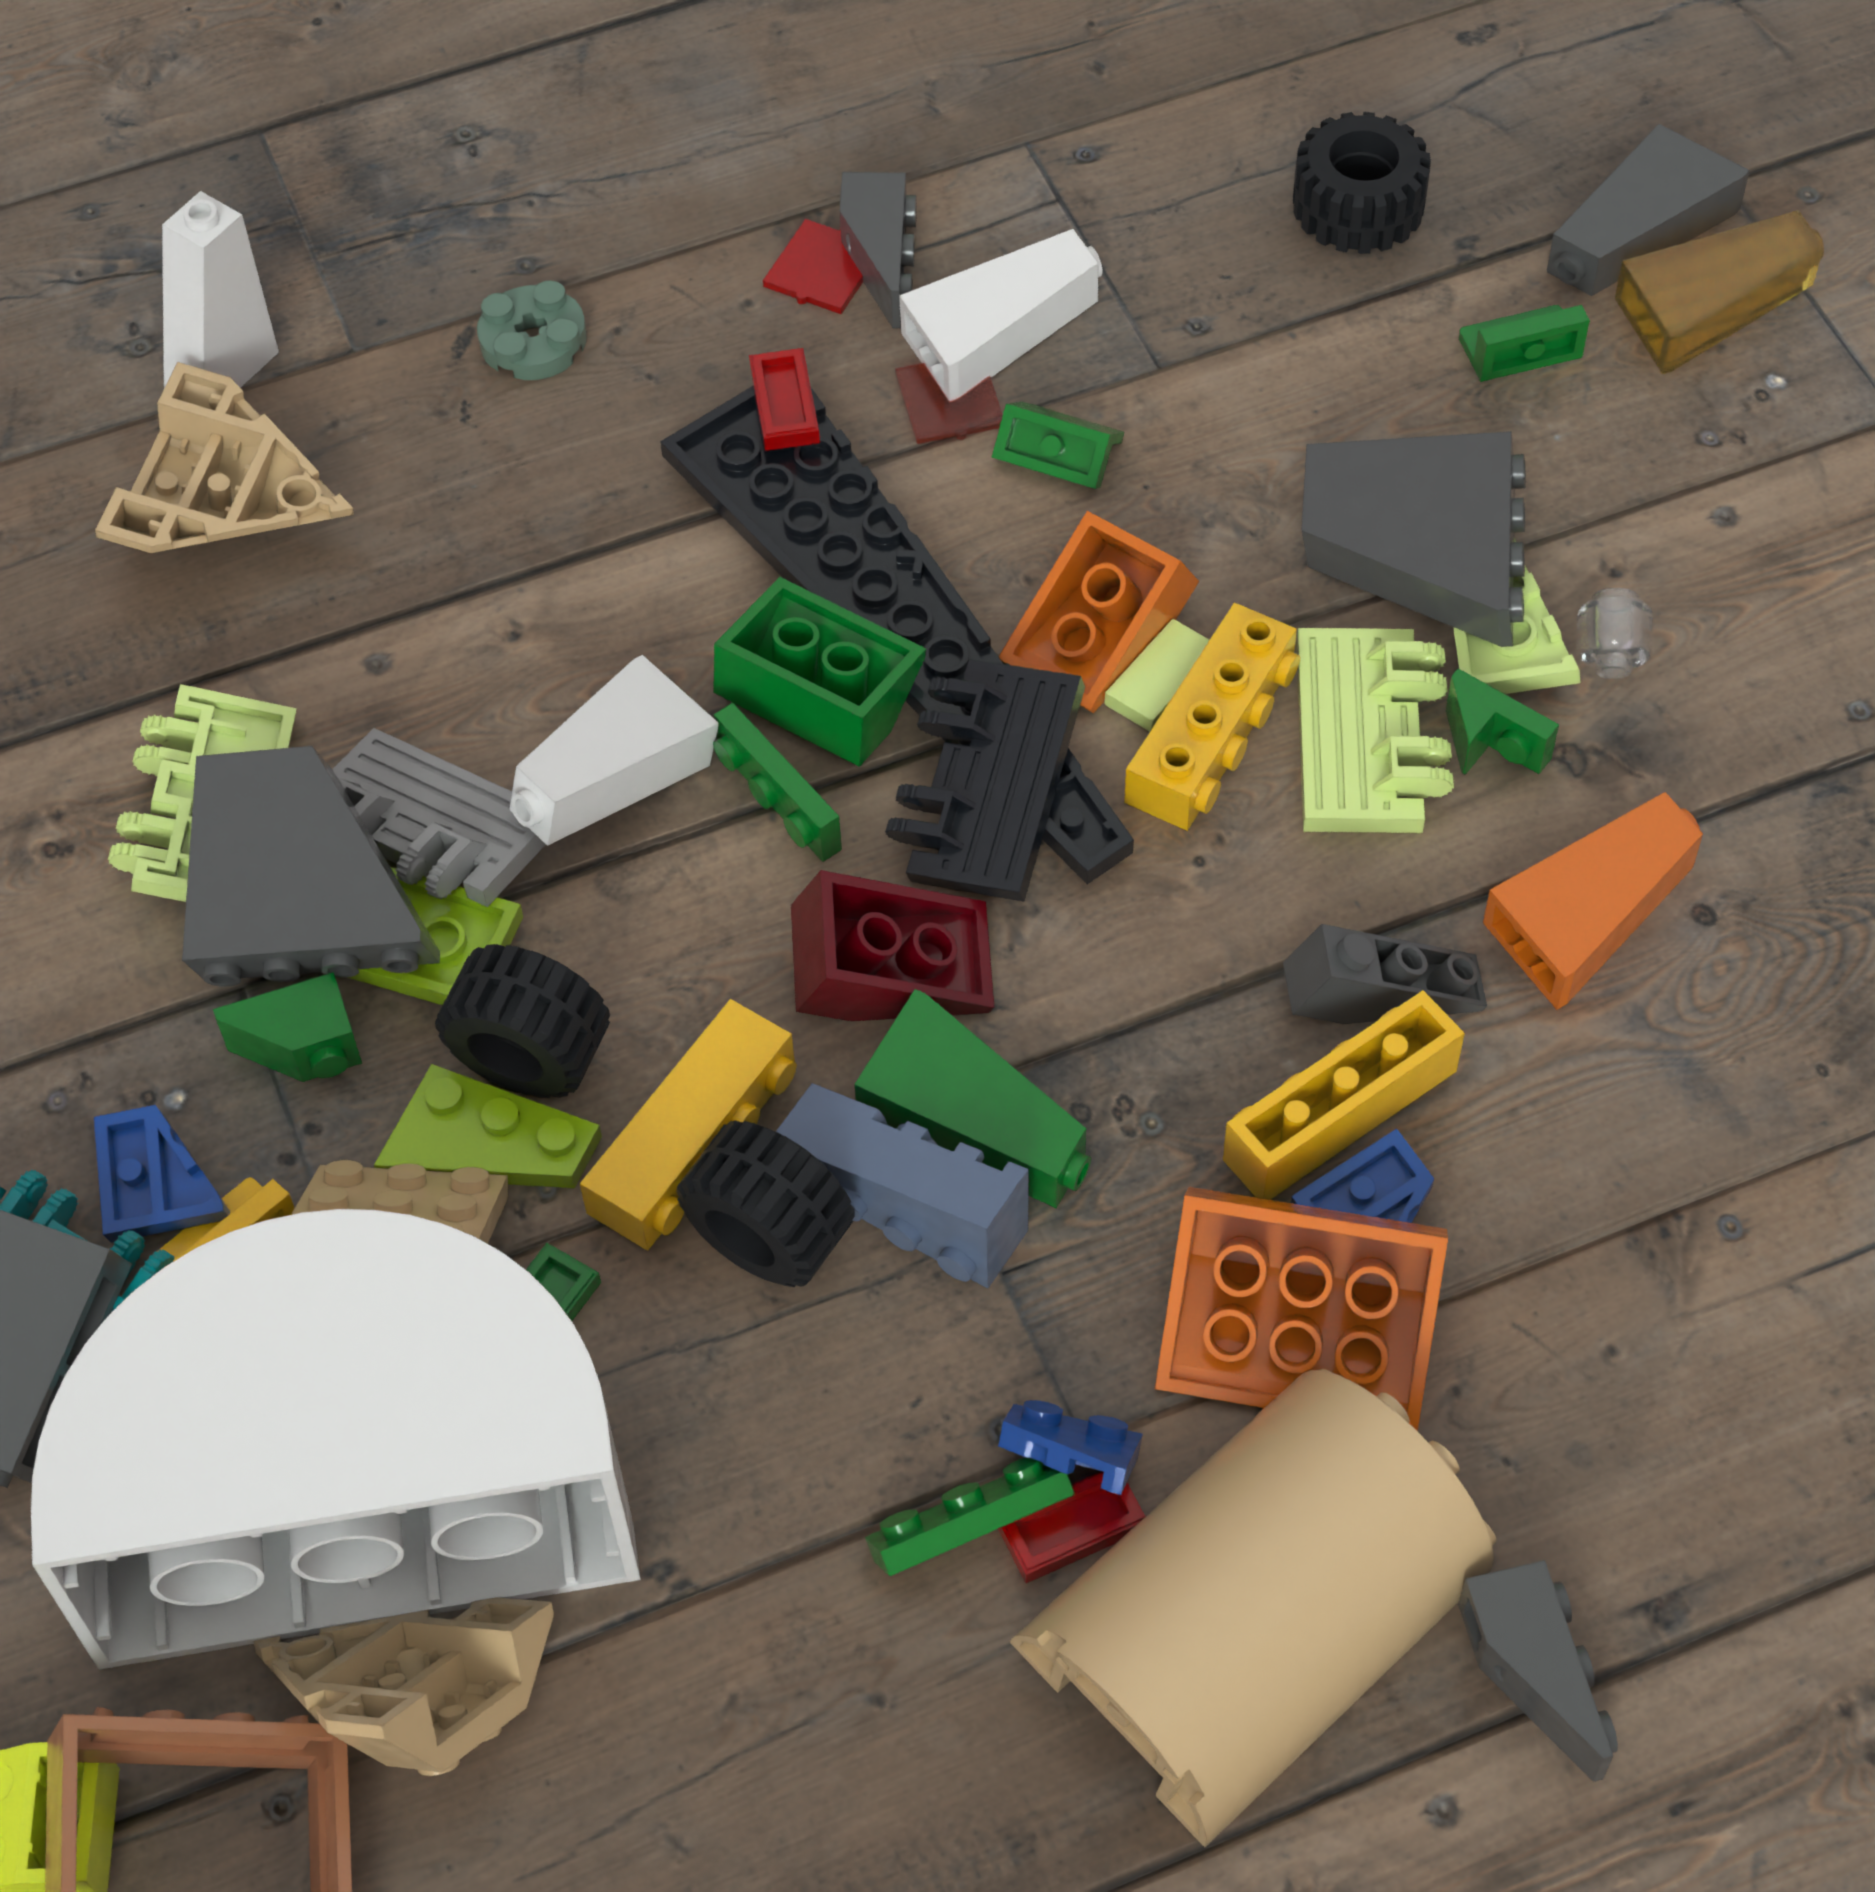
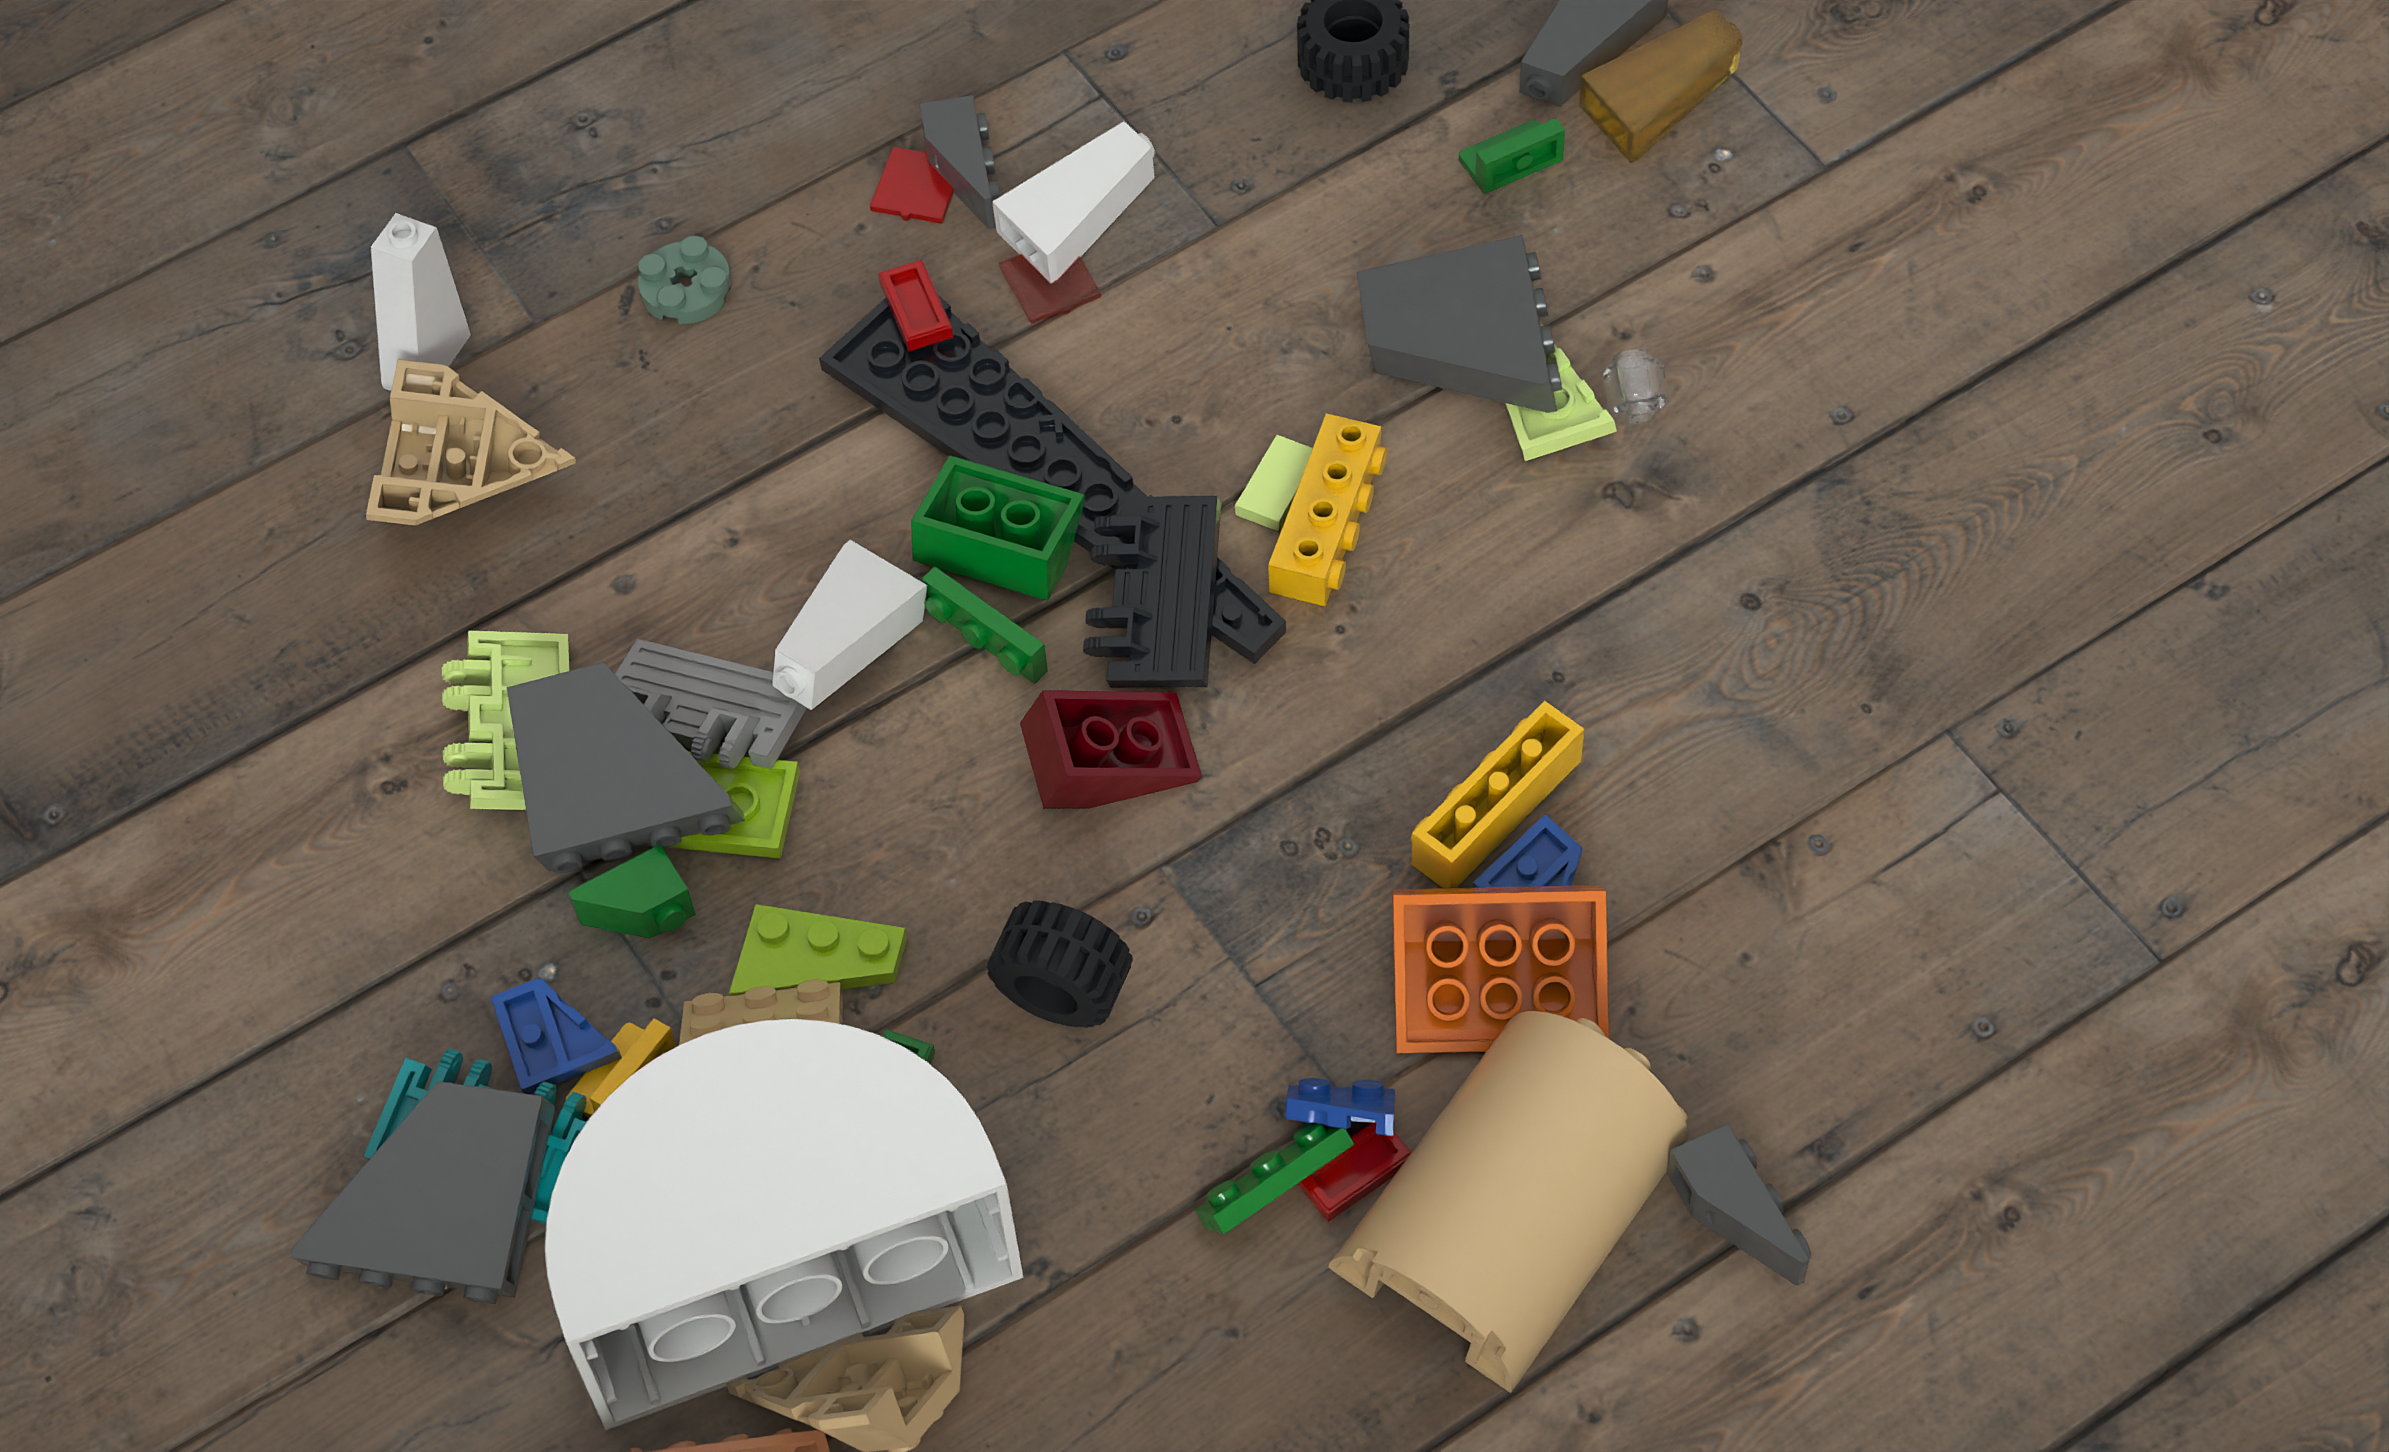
camera: 10 degrees left, 0 degrees up
(523, 1021) = (827, 855): black tyre -> none
(717, 1081) = (992, 881): yellow brick -> none
(913, 1188) = (1176, 931): sand blue wedge -> none
(966, 1093) = (1201, 857): green slope -> none
(1055, 443) = (1147, 304): green panel -> none
(1099, 607) = (1215, 436): orange slope -> none
(1362, 730) = (1445, 510): yellowish green hinge -> none
(1362, 975) = (1492, 698): dark grey slope -> none
(1488, 718) = (1550, 473): green slope -> none
(1590, 896) = (1659, 602): orange slope -> none

